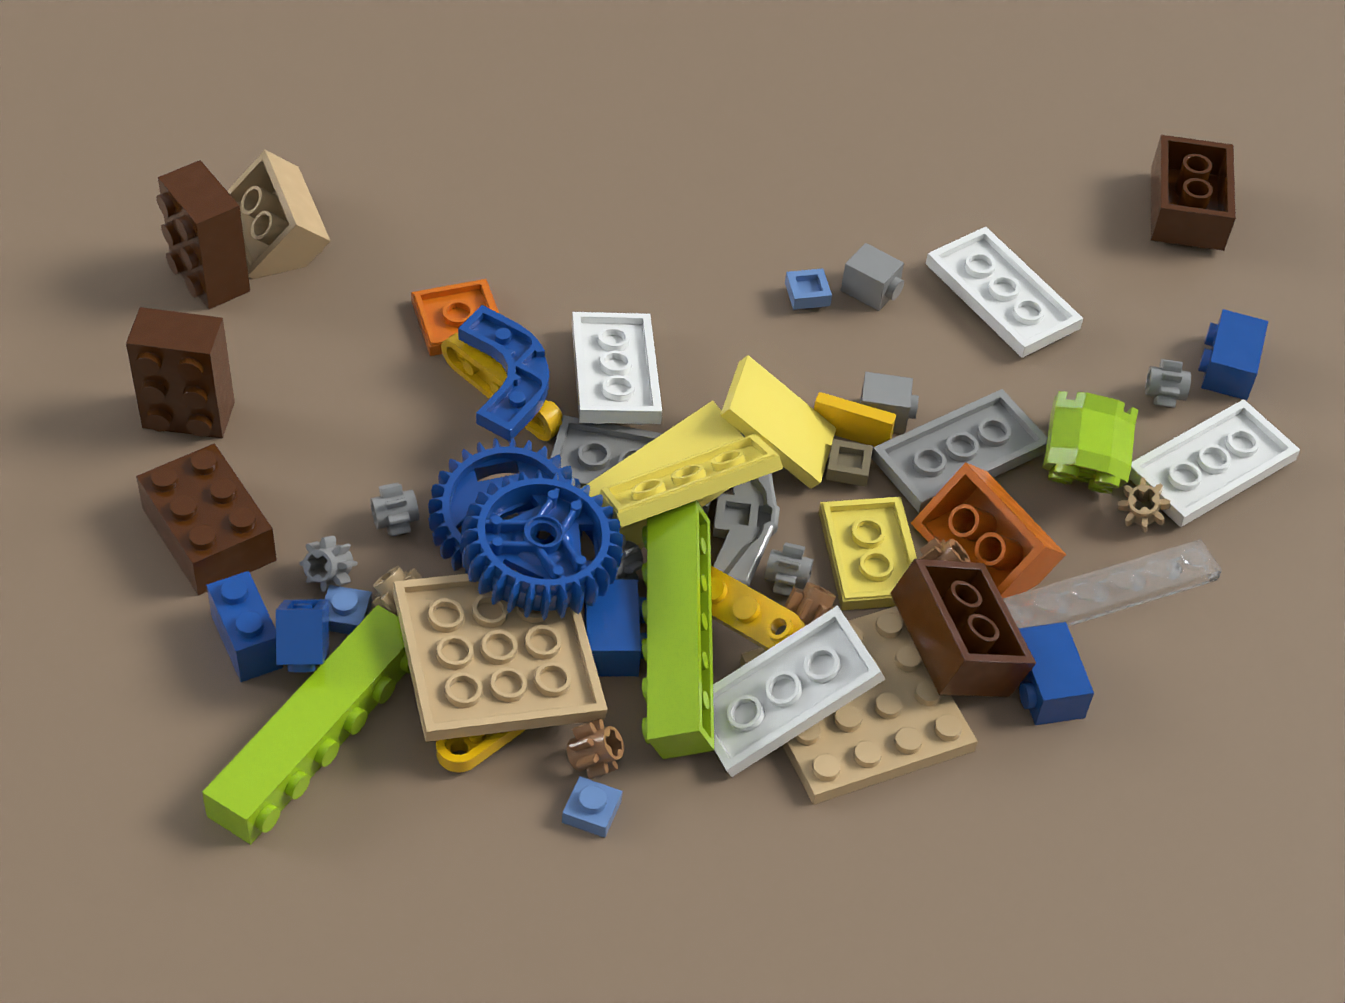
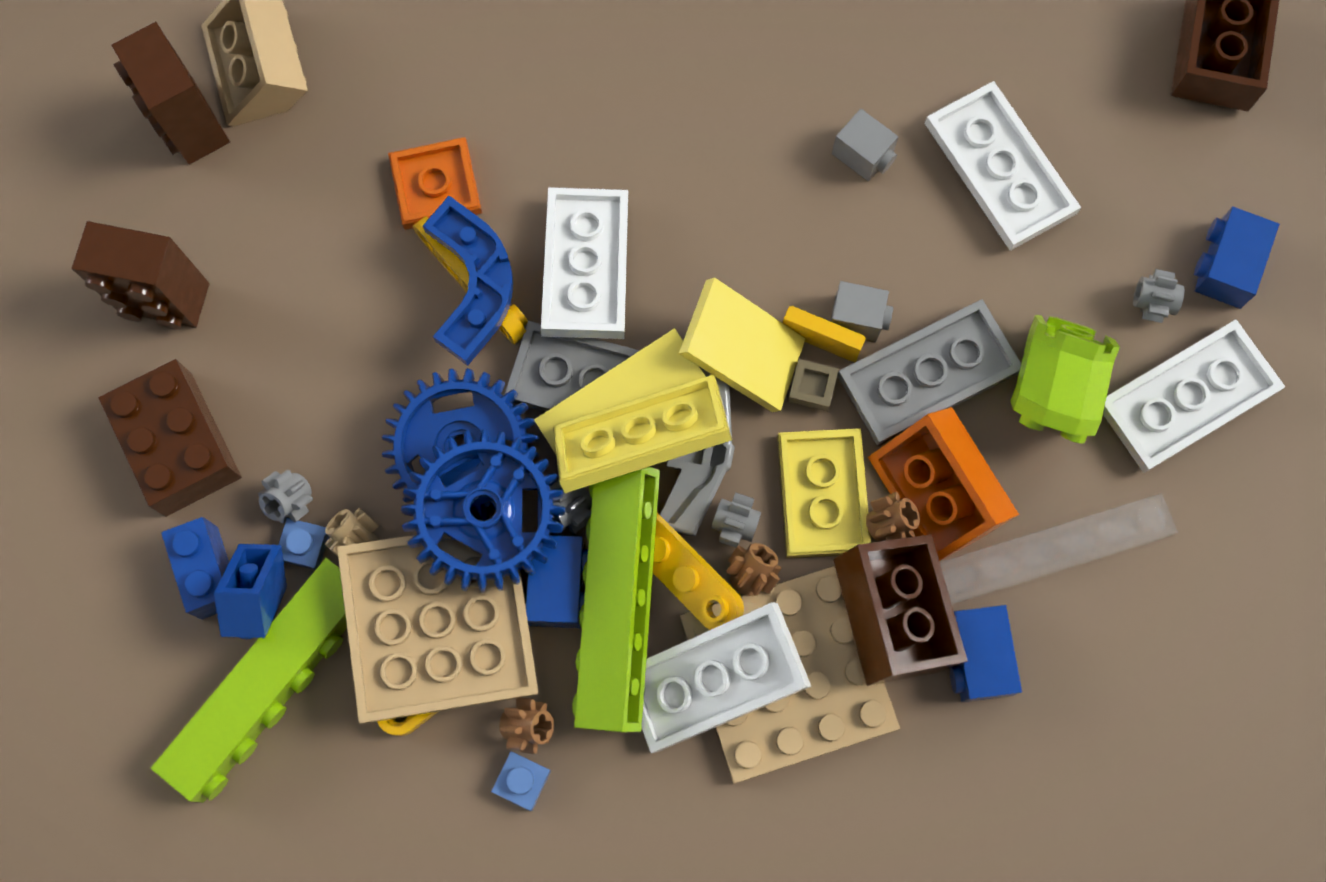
camera: 10 degrees right, 25 degrees up
(394, 509) = (353, 432): light grey gear -> none
(808, 289) = (796, 158): medium blue plate -> none
(1142, 494) = (1107, 464): tan gear -> none

